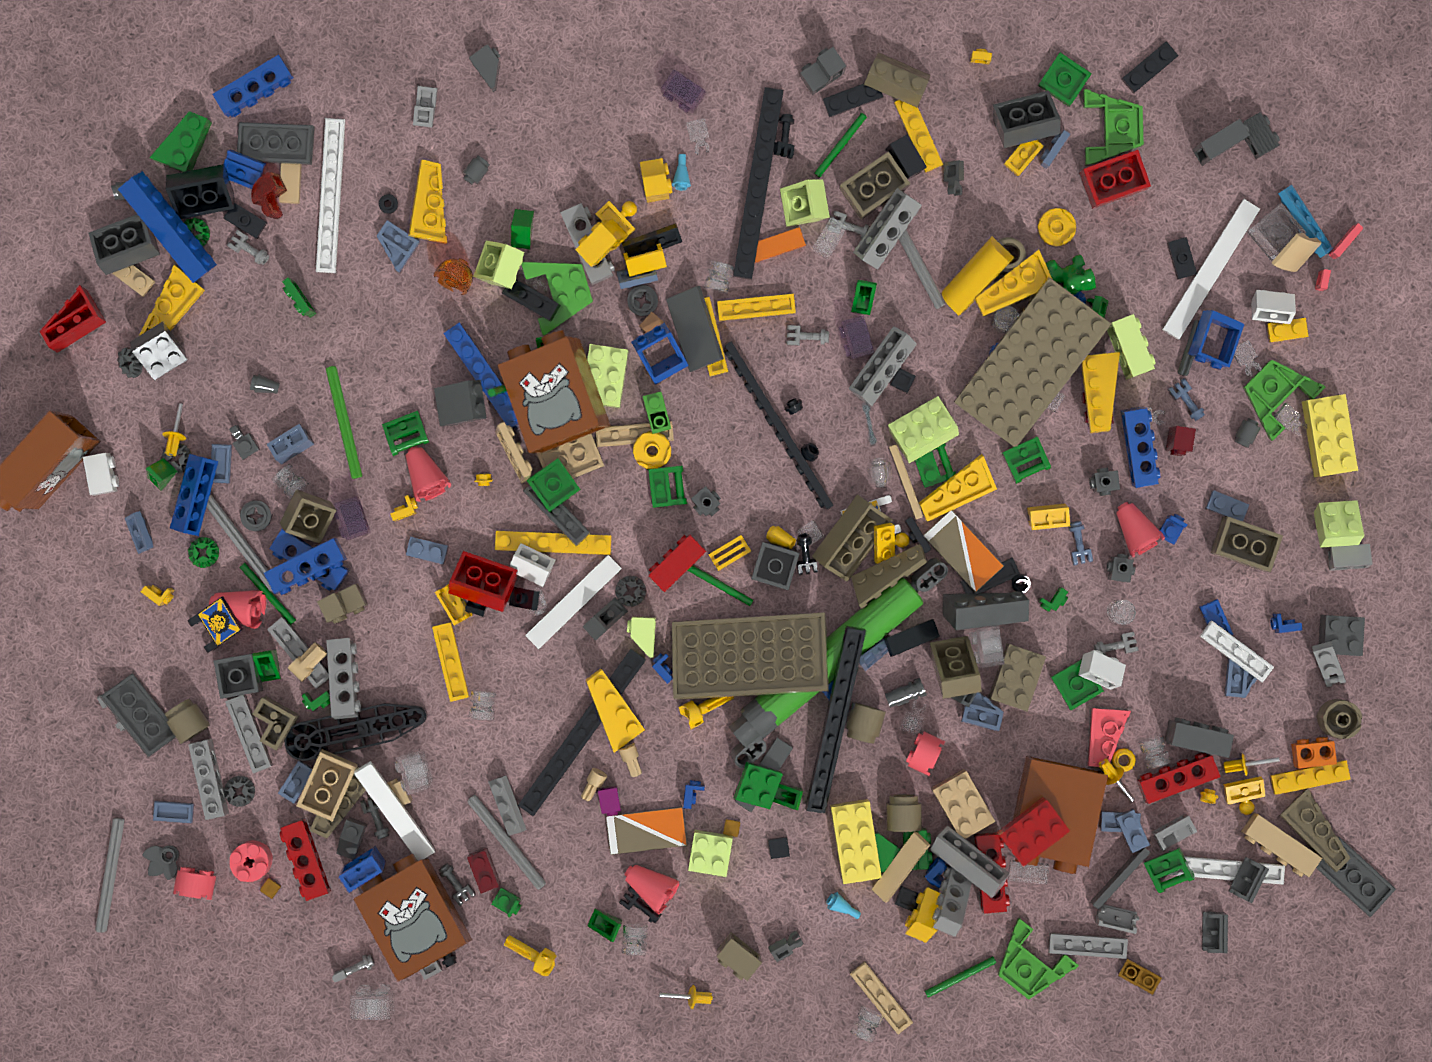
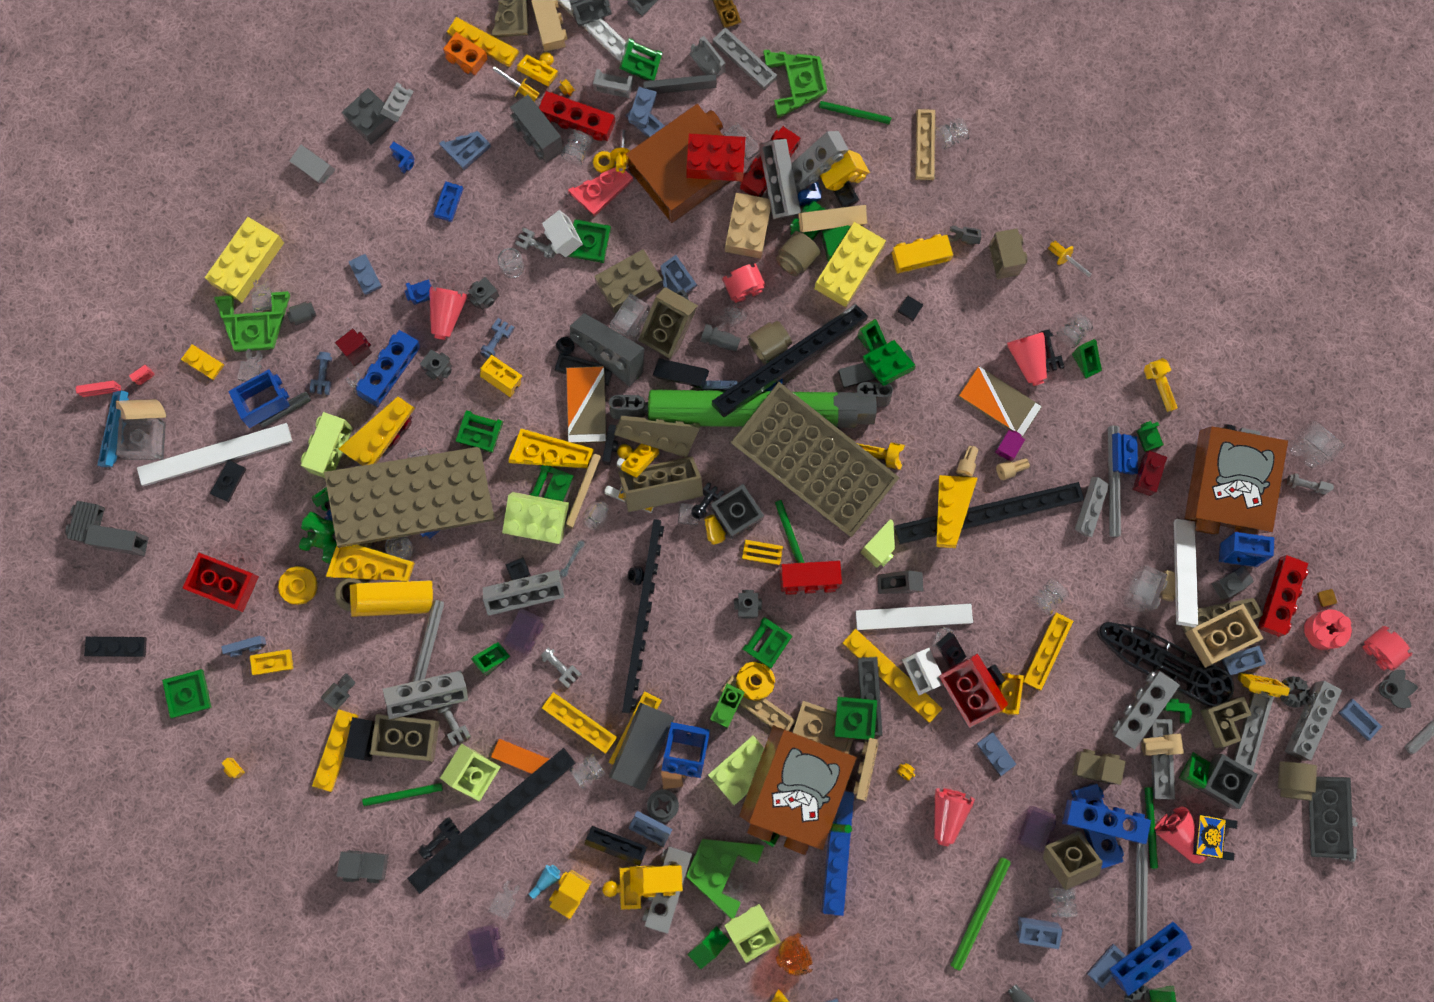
camera: 145 degrees left, 10 degrees down
(139, 532) = (1220, 960): sand blue plate -> none
(155, 595) = (1245, 904): yellow bracket -> none
(212, 551) = (1170, 900): green gear -> none
(245, 444) = (1075, 964): dark grey plate -> none
(248, 509) = (1121, 897): dark grey gear -> none
(268, 774) = (1259, 683): none -> yellow plate
(373, 808) = (1205, 567): dark grey hinge -> none
(402, 428) = (937, 867): green plate -> none
(402, 511) = (992, 800): yellow bracket -> none
(446, 870) = (1178, 497): dark grey hinge -> none
(460, 403) = (876, 846): dark grey brick -> none
(515, 870) = (1125, 453): none -> blue plate
(532, 300) = (749, 880): black plate -> none
(631, 581) = (856, 594): dark grey gear -> none
(645, 262) = (634, 833): yellow hinge -> none
(664, 671) = (889, 505): blue bracket -> none
(689, 795) = (946, 398): blue bracket -> none
(710, 853) = (965, 344): yellowish green brick -> none
(731, 828) = (933, 351): pearl gold piece -> none
(793, 406) = (617, 621): black plate -> none
(807, 900) = (922, 253): none -> yellow brick
(829, 238) = (475, 727): clear plate -> none
(839, 904) = (900, 232): medium azure cone -> none
(850, 99) = (359, 823): black plate -> none
(897, 79) = (312, 806): dark tan slope -> none
(1026, 119) = (243, 687): dark grey brick -> none
(1058, 599) = (548, 311): green bracket -> none
(1121, 126) = (178, 619): bright green wing -> none
(1236, 651) = (454, 167): white tile -> none
(1246, 544) = (376, 234): dark tan brick -> none
(1273, 306) = (195, 386): white brick -> none
(1338, 523) = (297, 192): yellowish green brick -> none
(1350, 720) = (425, 61): dark tan brick -> none

